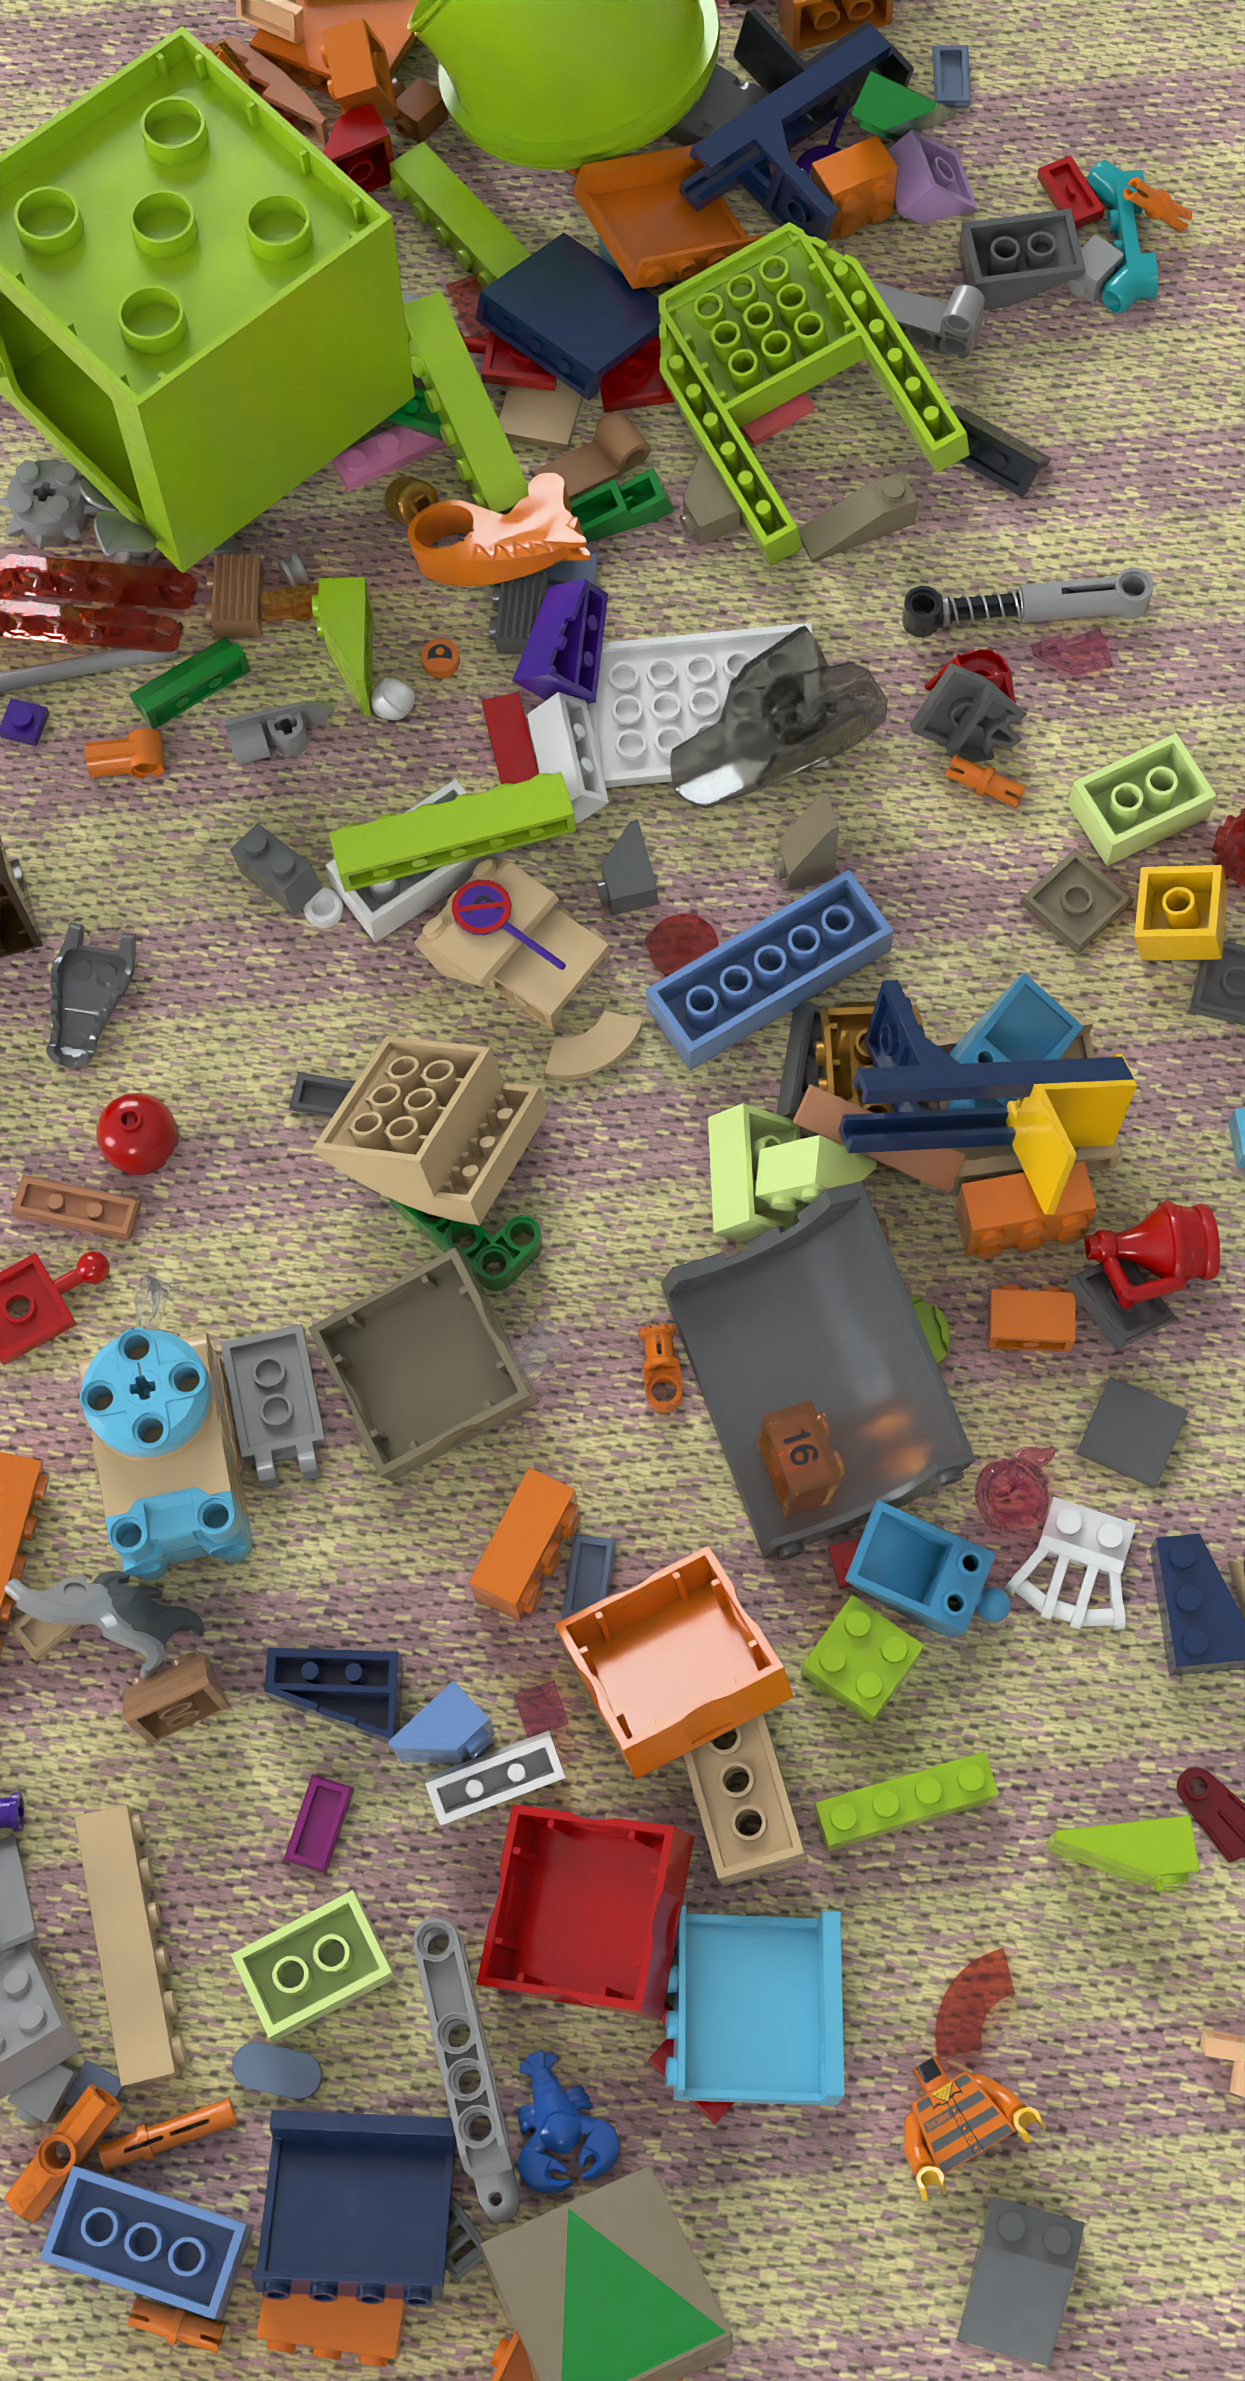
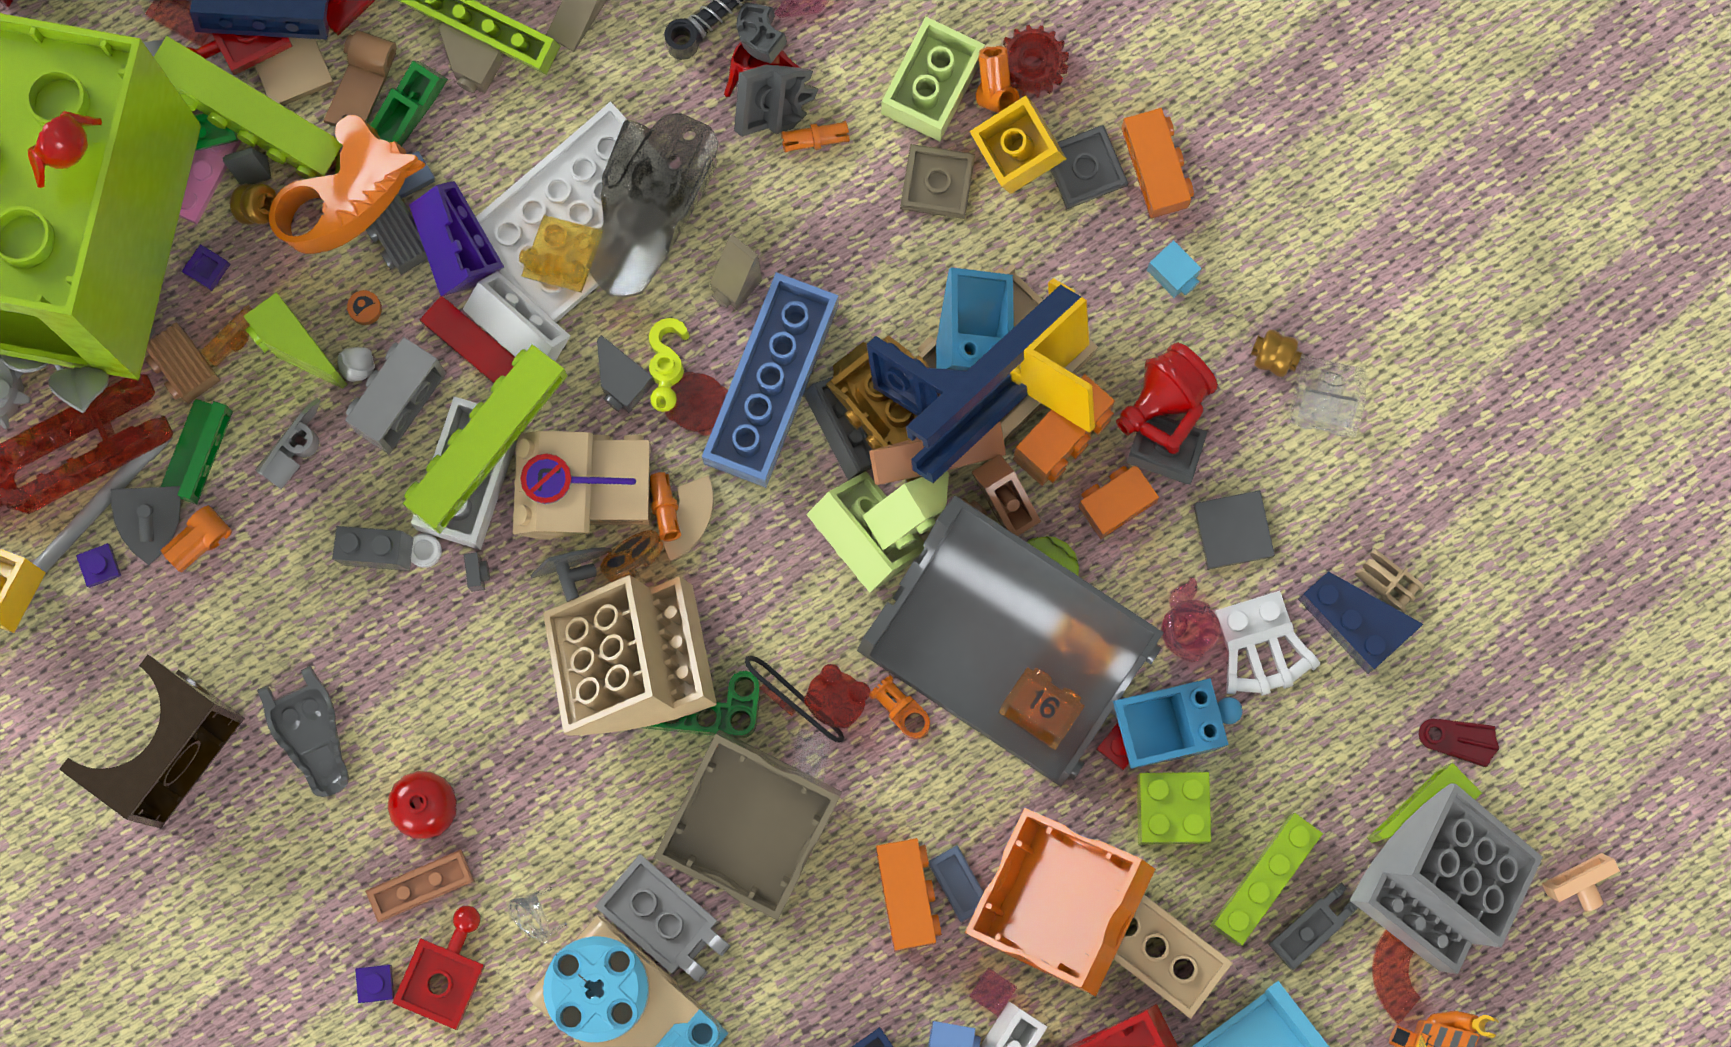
camera: 40 degrees left, 10 degrees up
(97, 708) = (146, 518): none -> dark grey shield
(245, 248) = (60, 144): none -> red piece
(293, 571) = (208, 316): light grey bush -> none
(318, 1094) = (530, 685): dark grey tile -> none
(325, 530) = (206, 267): none -> dark purple plate
(354, 956) = (476, 571): none -> dark grey plate
(404, 746) = (395, 395): none -> light grey brick
(433, 465) = (248, 166): none -> dark grey slope
(445, 1008) = (567, 576): none -> dark grey shield
(518, 1038) = (630, 554): none -> clear orange tile
(548, 1272) = (778, 700): none -> clear red piece
(551, 1216) = (752, 658): none -> black piece
(577, 1018) = (664, 506): none -> orange pin
(604, 1310) = (836, 697): none -> clear red piece
(656, 722) = (561, 253): none -> clear yellow hinge
(679, 892) = (665, 365): none -> neon yellow piece
(918, 1231) = (1006, 496): none -> nougat brick
(918, 1890) = (1311, 929): none -> dark grey hinge
(1000, 648) = (757, 33): none -> dark grey tile
(1098, 1937) = (1448, 880): none -> light grey slope
(1203, 834) = (995, 87): none -> orange piece

